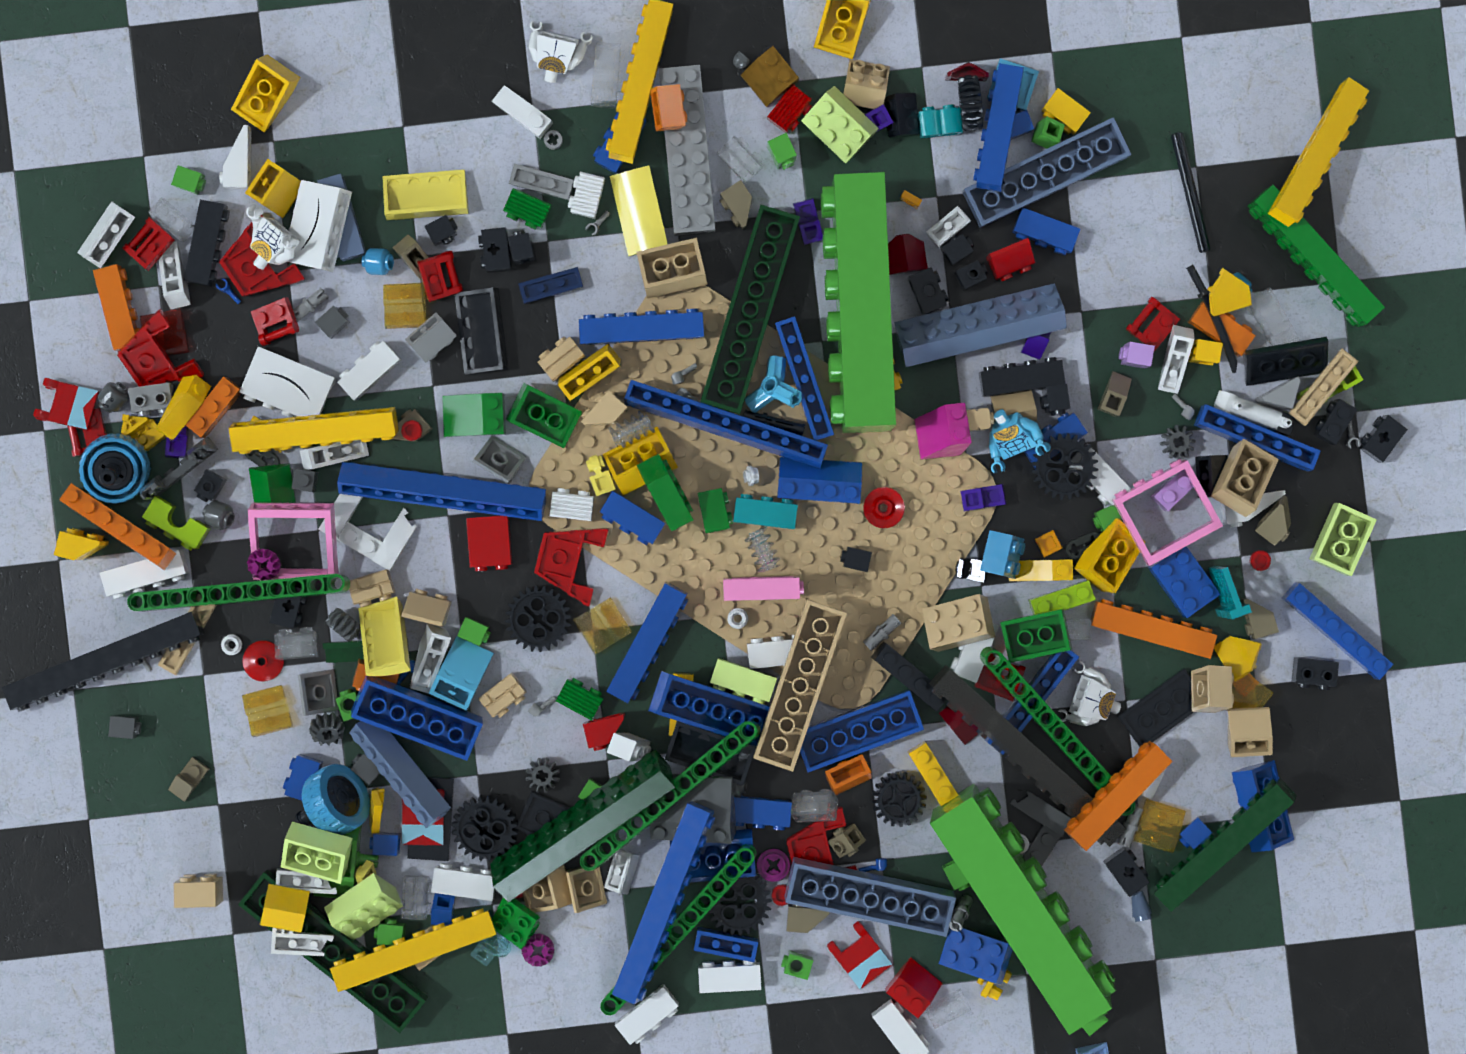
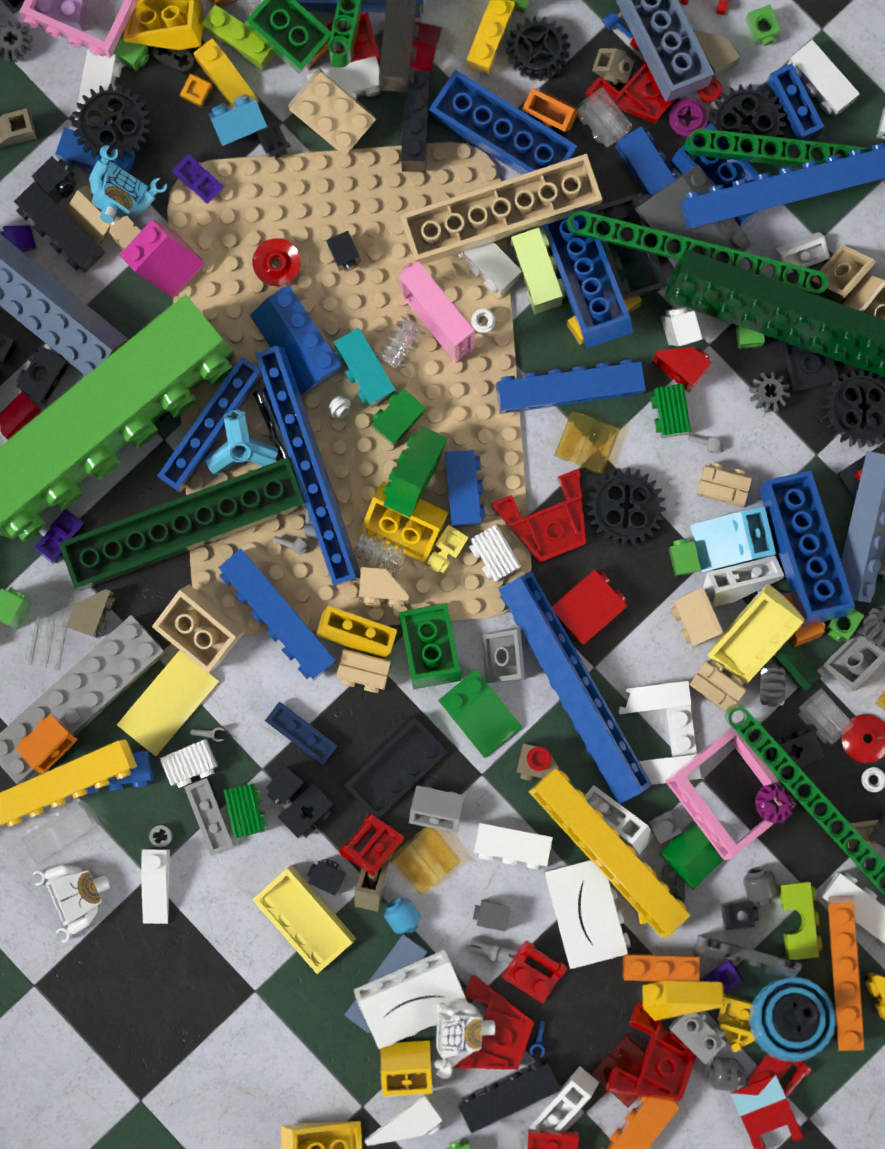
camera: 125 degrees left, 5 degrees down
(882, 632) = (394, 177): light grey pin -> none

